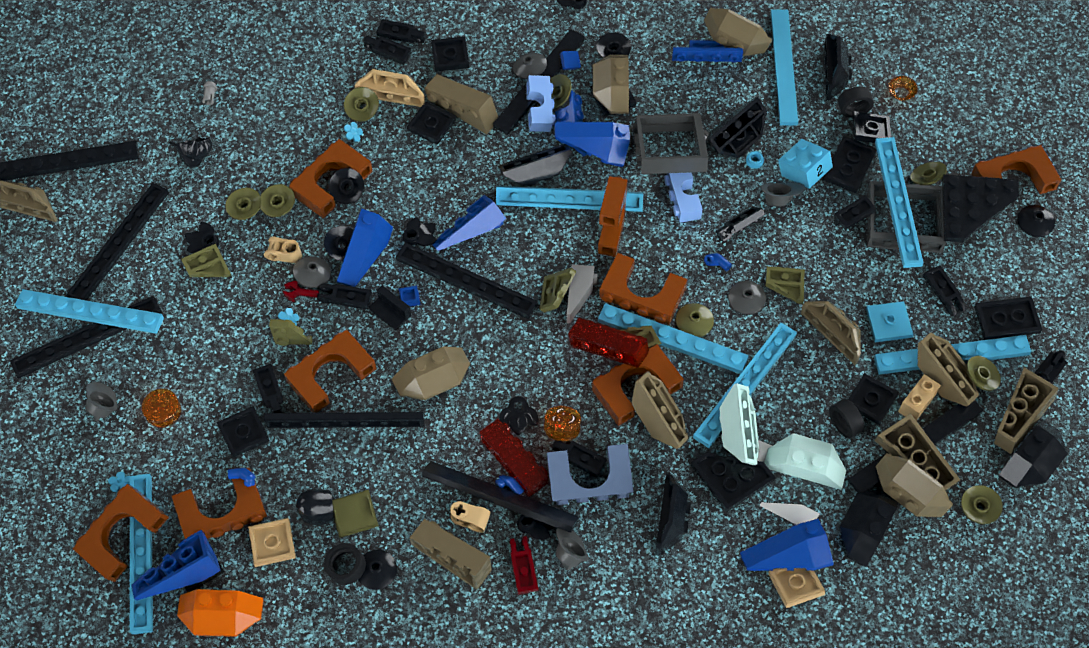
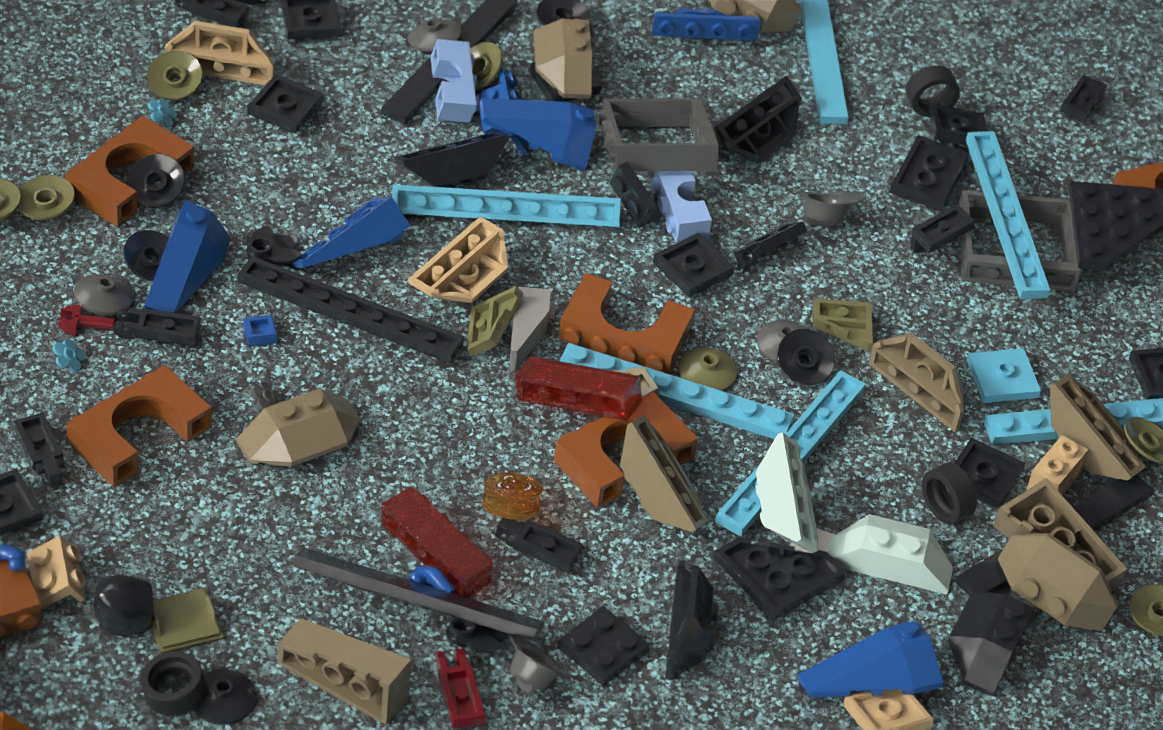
camera: 10 degrees left, 15 degrees down
(272, 542) = (52, 655): tan plate -> none
(276, 481) = (56, 571): none -> tan bracket
(280, 250) = (59, 263): tan piece -> none
(286, 333) = (70, 369): olive wing -> none
(344, 420) = (164, 489): black tile -> none
(390, 308) = (232, 343): black panel -> none
(411, 348) = (265, 395): none -> dark grey plant
(463, 101) = (344, 77): dark tan wedge -> none
(472, 517) = (373, 622): tan piece -> none
(519, 418) = (446, 490): black plate -> none
(540, 249) = (465, 265): none -> tan wedge
(565, 489) = (523, 585): sand blue arch -> none
(570, 60) = (497, 29): blue tile -> none
(612, 216) = (578, 216): dark orange arch -> none
(616, 531) = (603, 645): none -> black plate
(653, 190) = (634, 196): none -> black bracket
(689, 240) = (693, 264): none -> black plate
(717, 260) = (737, 291): blue arm -> none
(754, 155) = (786, 163): medium azure plate -> none
(767, 309) = (813, 348): none -> black dish
(792, 512) = (865, 621): white sticker -> none
(805, 163) = (863, 165): medium azure brick -> none
(836, 65) = (900, 45): black wedge -> none
(905, 82) = (1004, 73): clear orange piece -> none
(928, 173) = (1048, 185): olive dish -> none
(945, 290) = (1084, 335): black hinge -> none
(958, 101) = (1083, 98): none -> black plate

